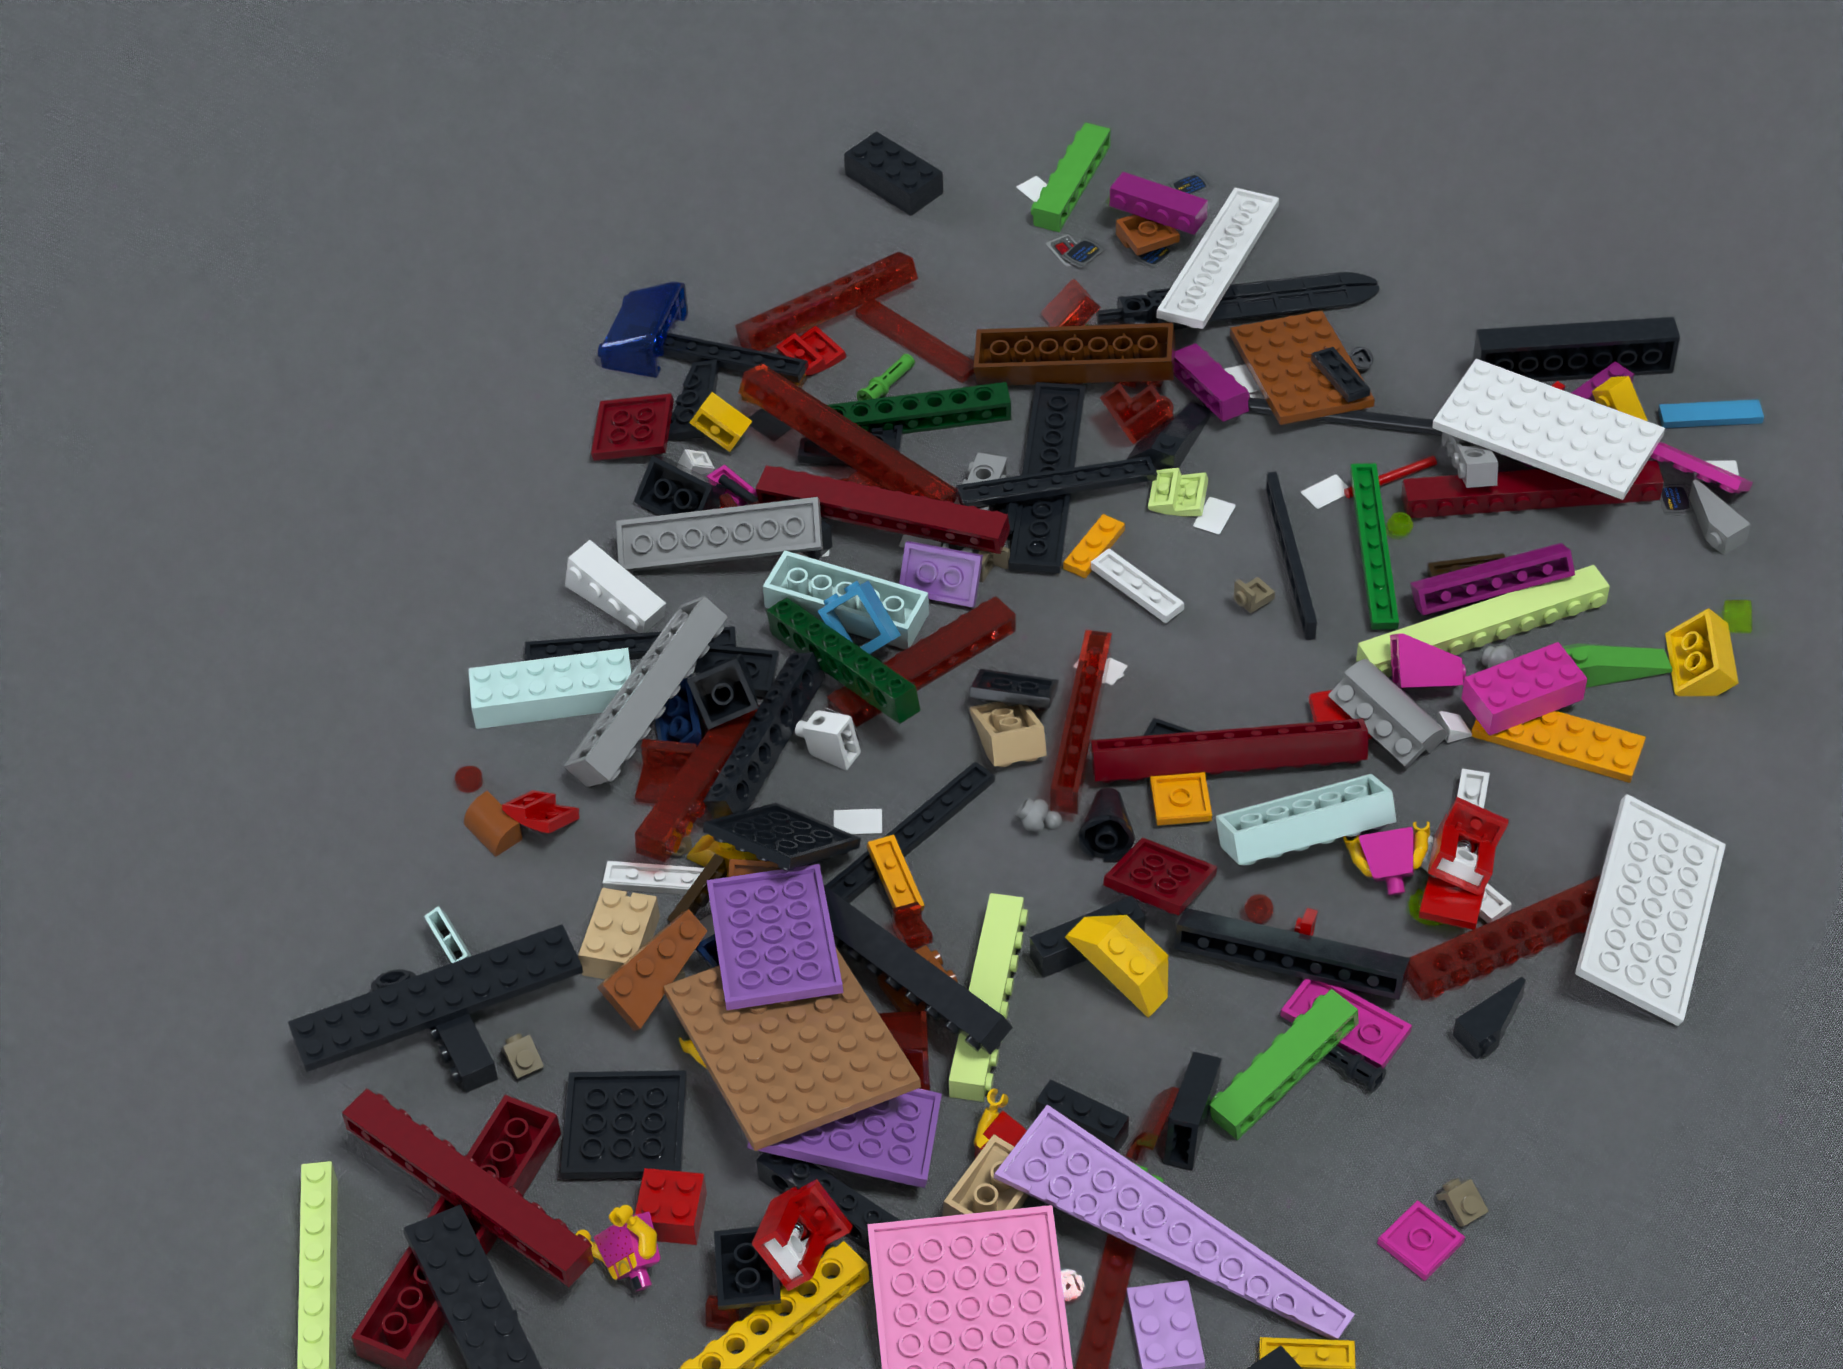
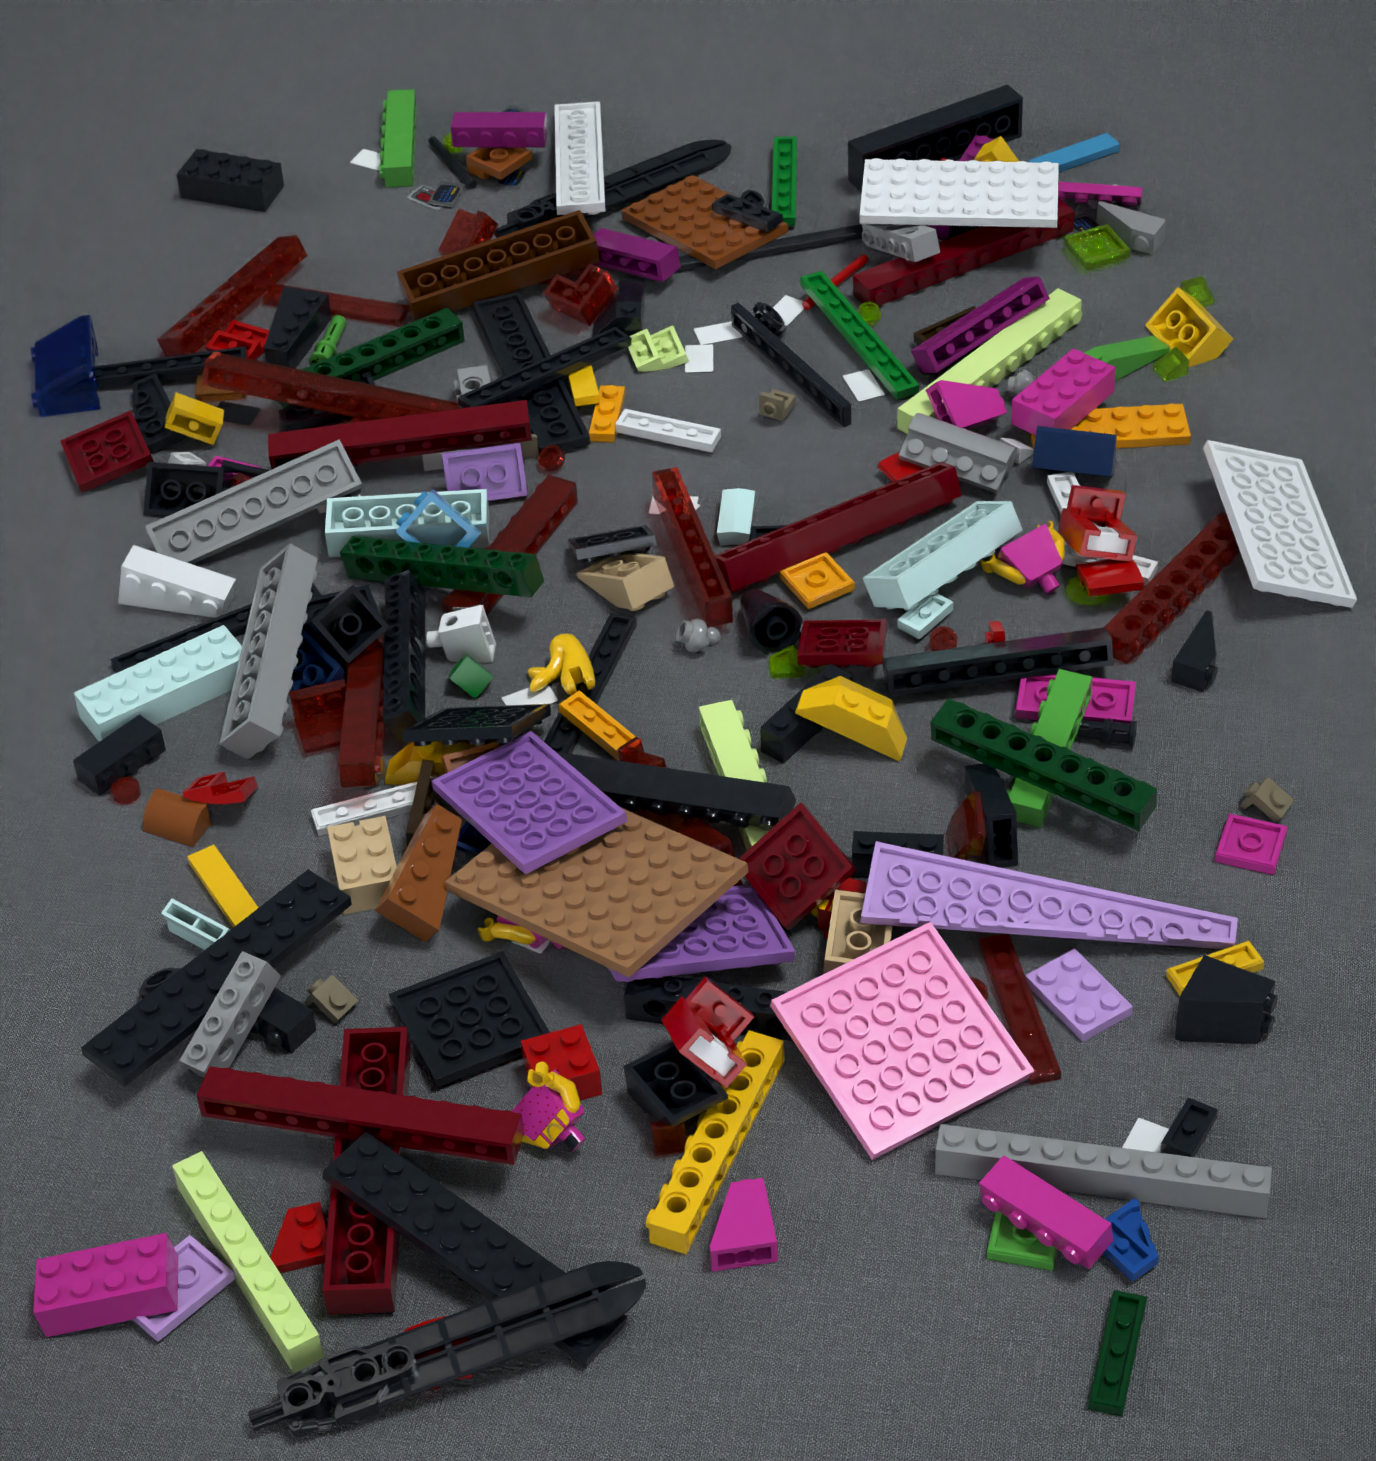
camera: 25 degrees left, 5 degrees down
(195, 1252) = (106, 1285): none -> dark pink brick
(250, 1276) = (199, 1280): none -> lavender plate
(370, 1274) = (300, 1239): none -> red wing
(420, 1043) = (231, 1015): none -> light grey brick
(480, 742) = (119, 754): none -> black brick
(497, 905) = (222, 884): none -> yellow tile
(815, 778) = (470, 675): none -> green panel
(862, 355) = (296, 326): none -> black wedge
(903, 803) = (568, 660): none -> yellow piece
(971, 1096) = (796, 866): none -> dark red plate
(1015, 576) = (551, 458): none -> clear red tile
(1086, 510) = (584, 386): none -> yellow tile
(1096, 873) = (785, 664): none -> clear neon green slope
(1107, 219) = (452, 162): none -> black bar
(1145, 701) = (735, 516): none -> light aqua piece
(1246, 493) = (716, 333): none -> white sticker
(1258, 876) = (925, 616): none -> light aqua plate
(1299, 497) = (769, 318): none -> black gear
(1312, 1163) = (1044, 764): none -> dark green brick
(1351, 601) = (863, 385): none -> white sticker
(1405, 346) = (785, 178): none -> green plate
(1497, 756) = (1075, 451): none -> dark blue slope
(1662, 689) = (1172, 365): none -> clear neon green slope
(1668, 528) = (1097, 247): none -> clear neon green plate

